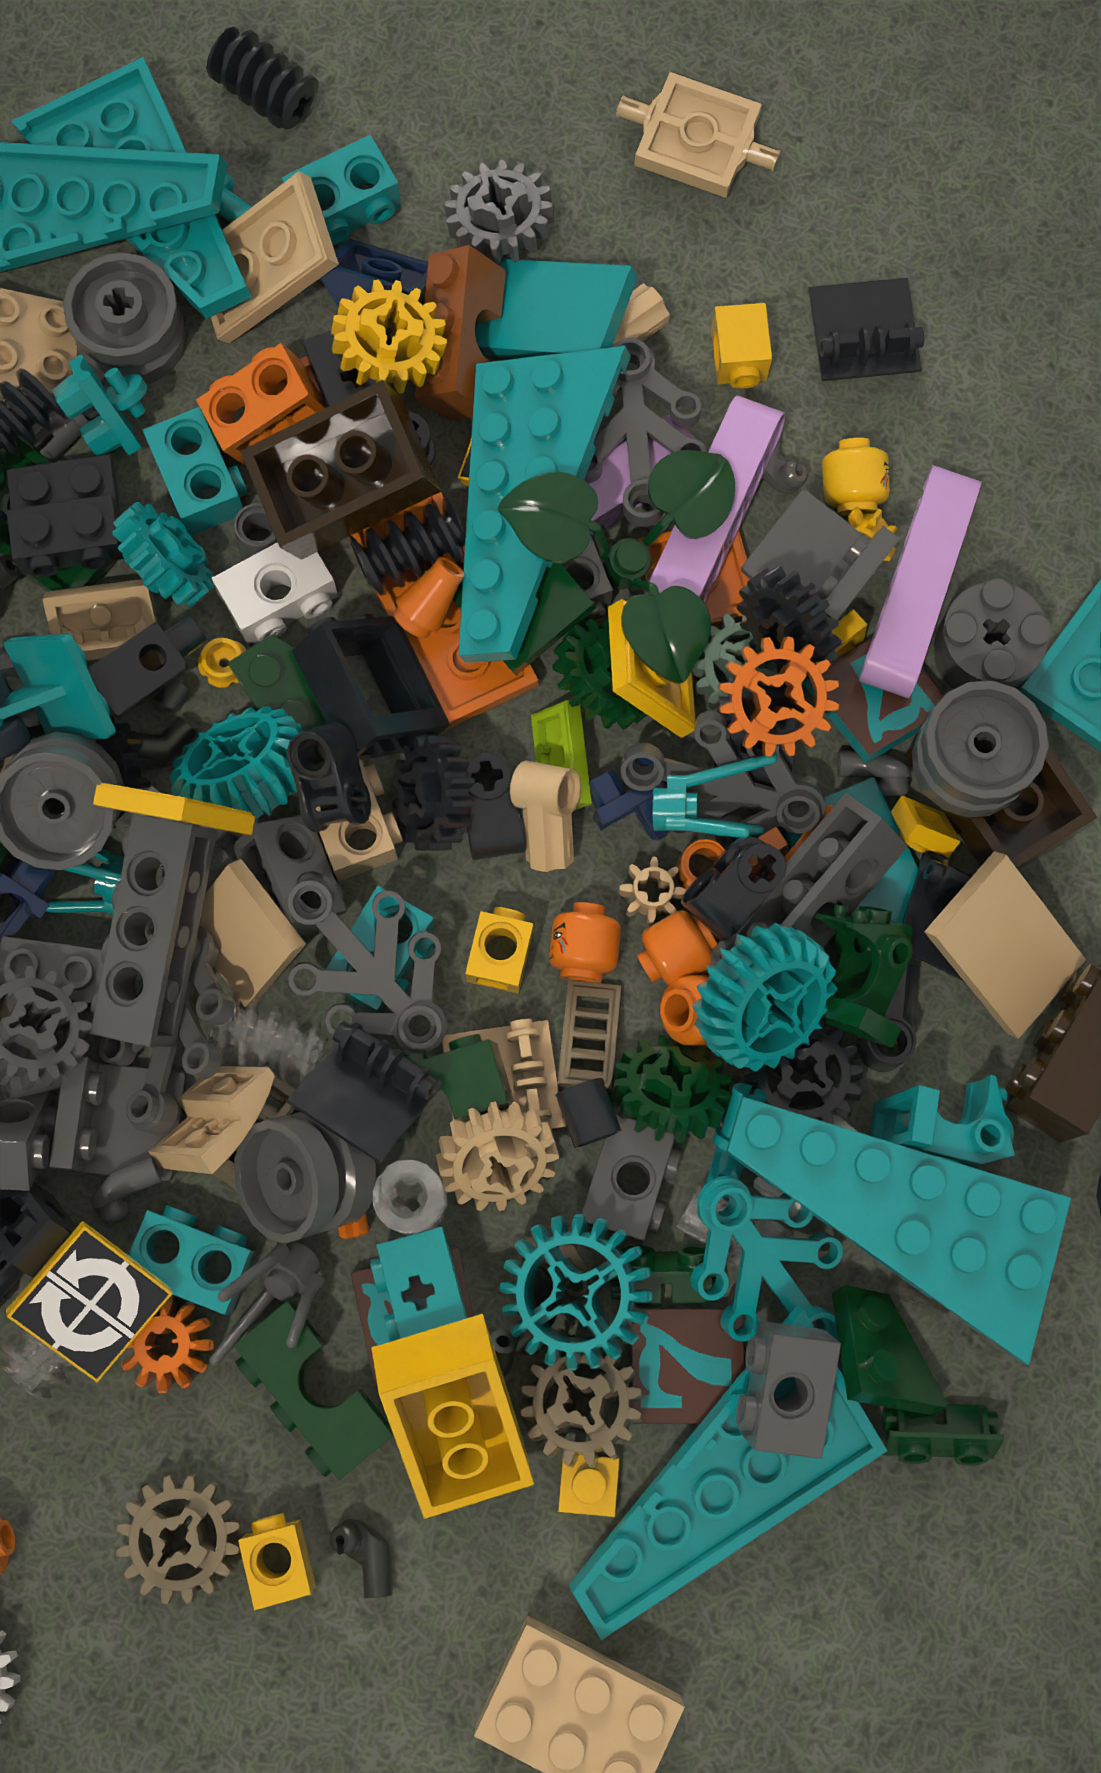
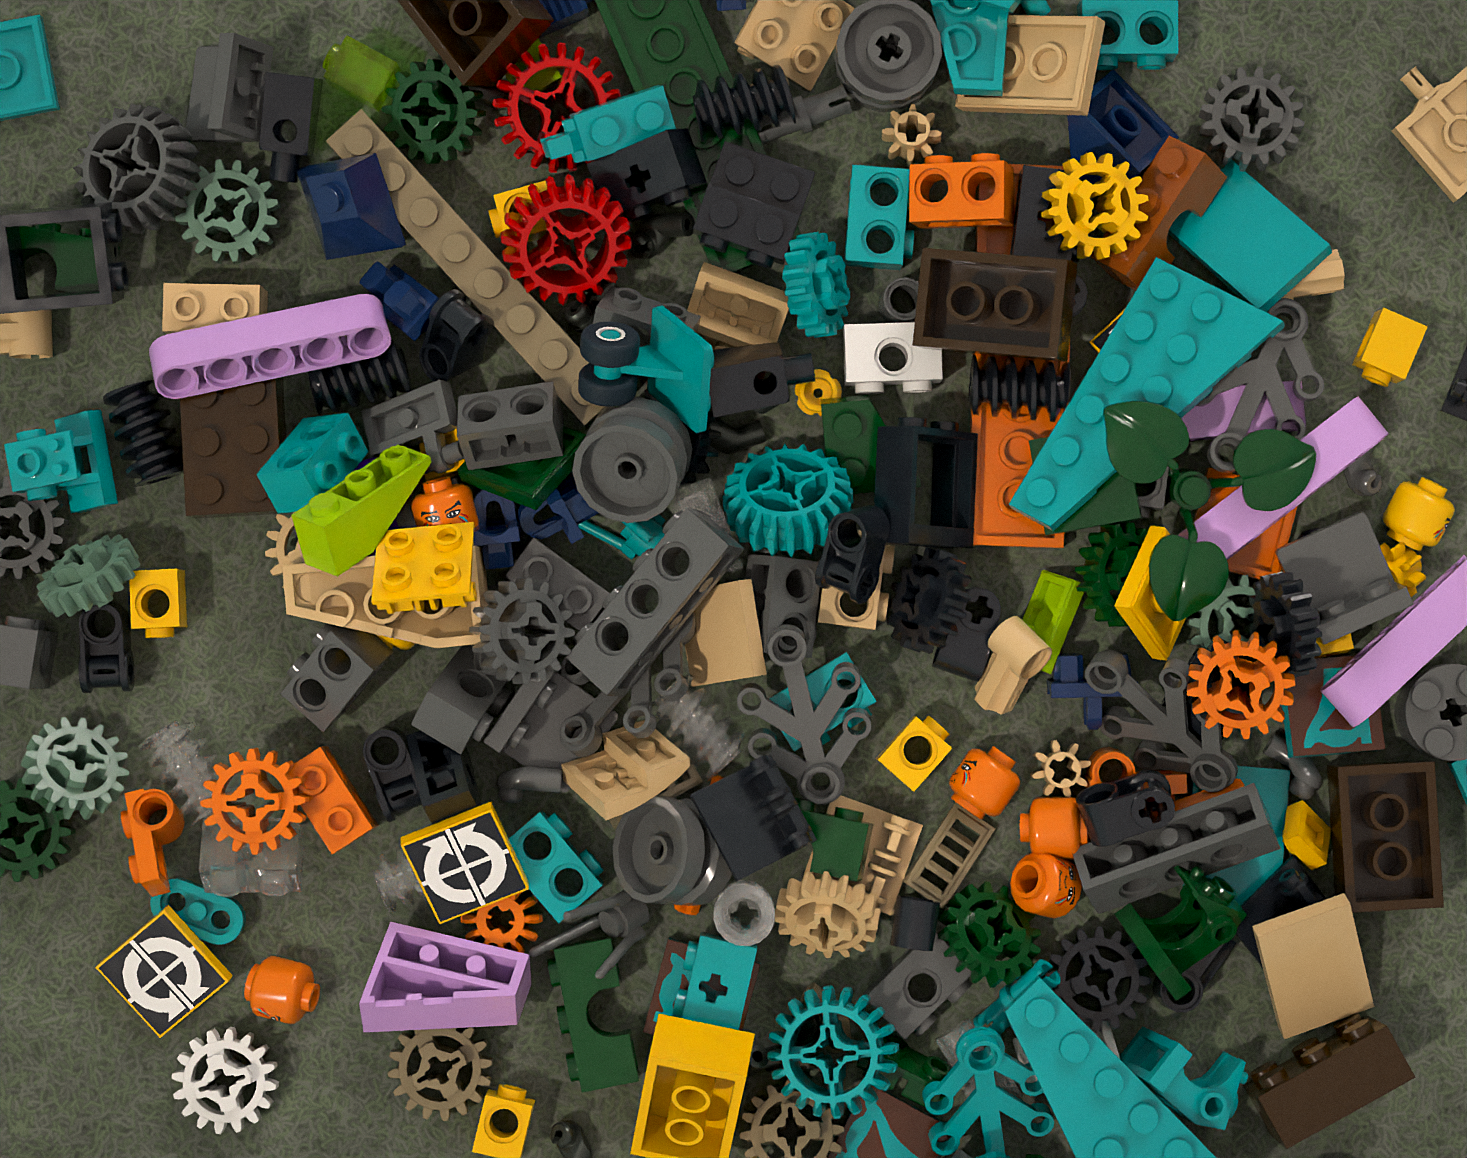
camera: 30 degrees right, 10 degrees up
(86, 390) = (824, 109): teal hips -> none
(130, 1445) = (442, 983): none -> lavender wedge
(174, 808) = (721, 526): yellow tile -> none
(185, 380) = (911, 120): none -> tan gear
(428, 598) = (1009, 440): orange cone -> none
(678, 810) = (1113, 726): teal plant -> none
(764, 997) = (1099, 910): teal gear -> none
(983, 718) = (1347, 805): dark grey wheel -> none

